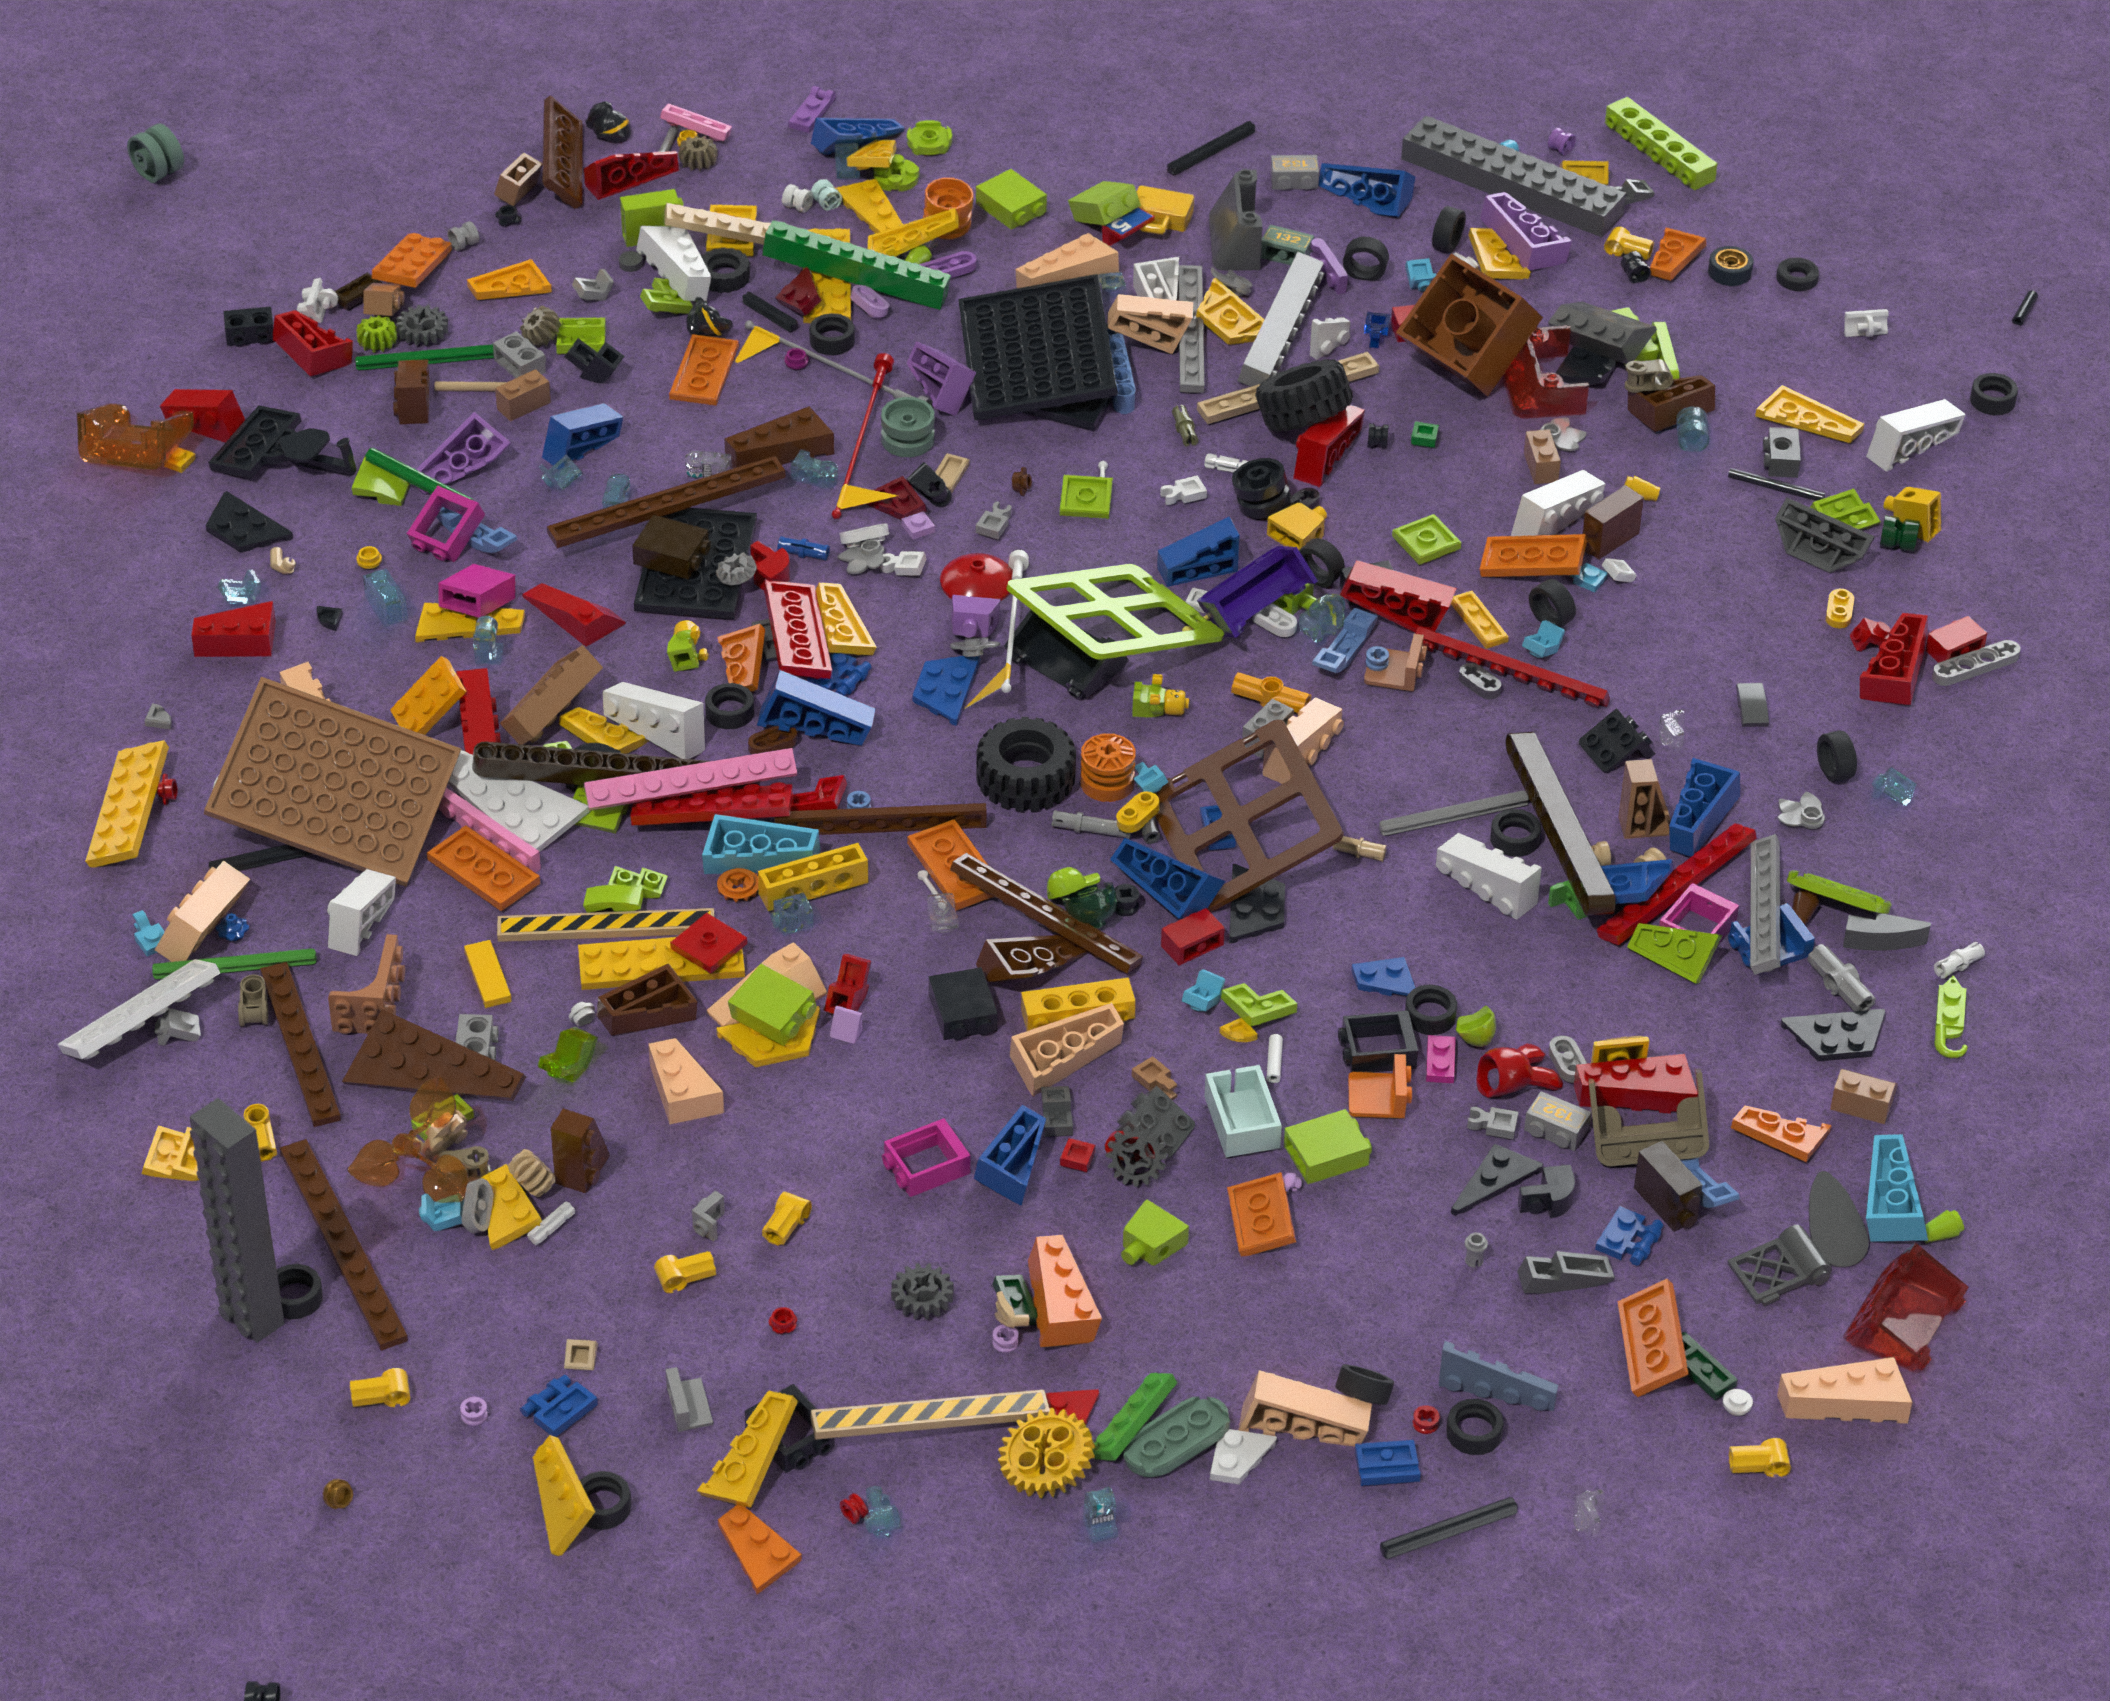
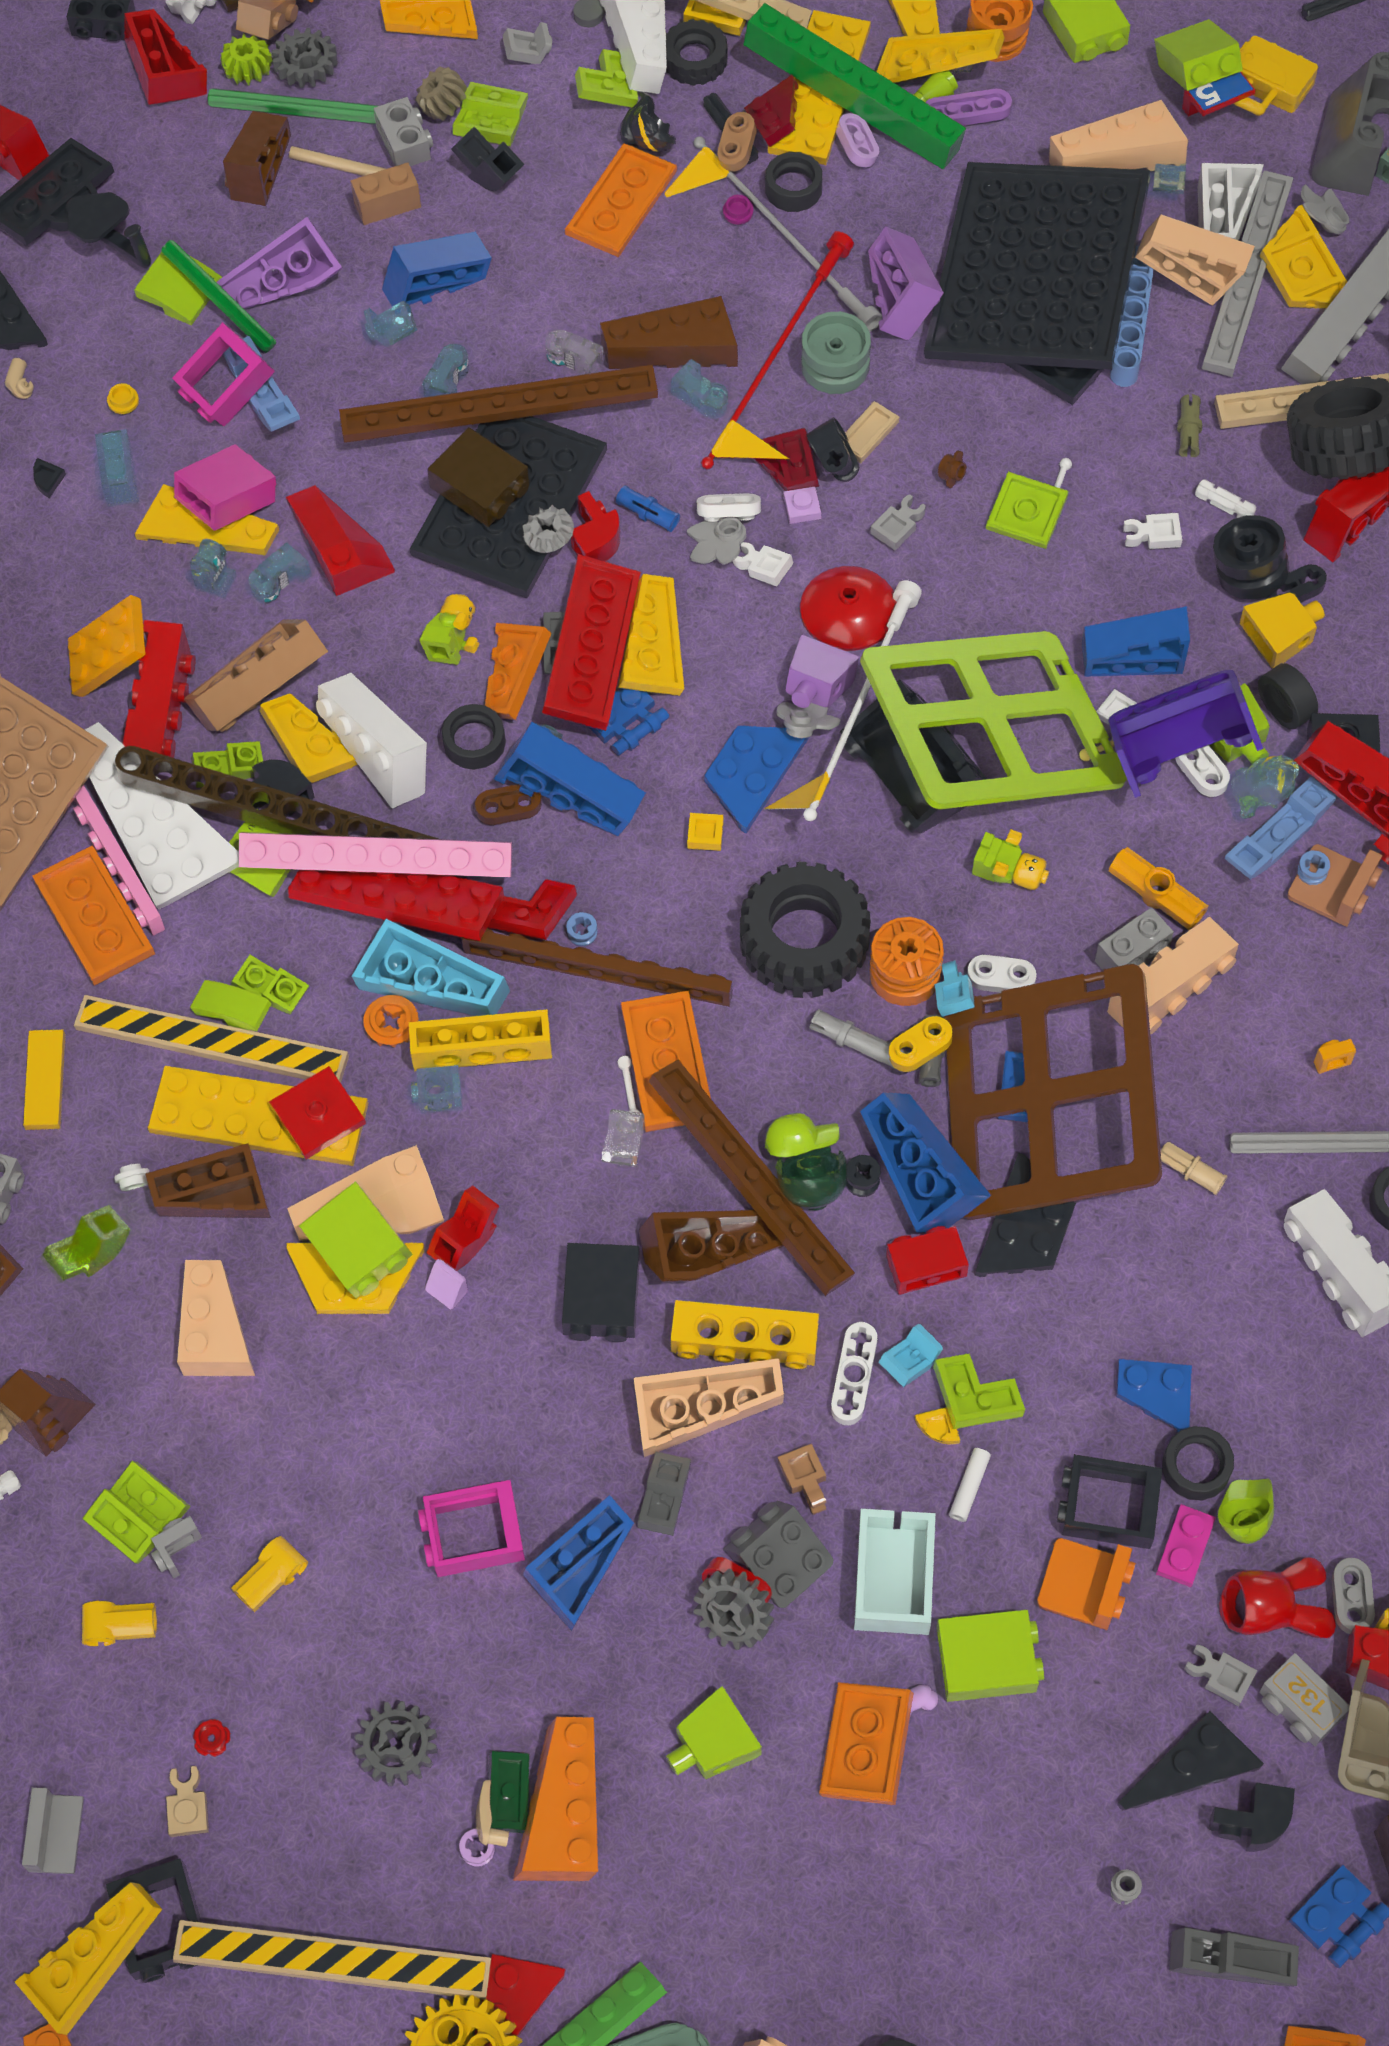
camera: 20 degrees right, 20 degrees up
(537, 638) = (277, 573): none -> clear light blue leg
(668, 1206) = (135, 1511): none -> lime slope
(780, 316) = (737, 138): none -> medium nougat plate
(780, 1366) = (187, 1809): none -> tan plate
(927, 727) = (705, 831): none -> yellow plate
(1077, 1155) = (665, 1575): red plate -> none
(1169, 1005) = (868, 1350): none -> white beam
(1175, 765) = (1001, 973): none -> white plate
(1434, 762) = (1334, 1055): none -> light orange plate

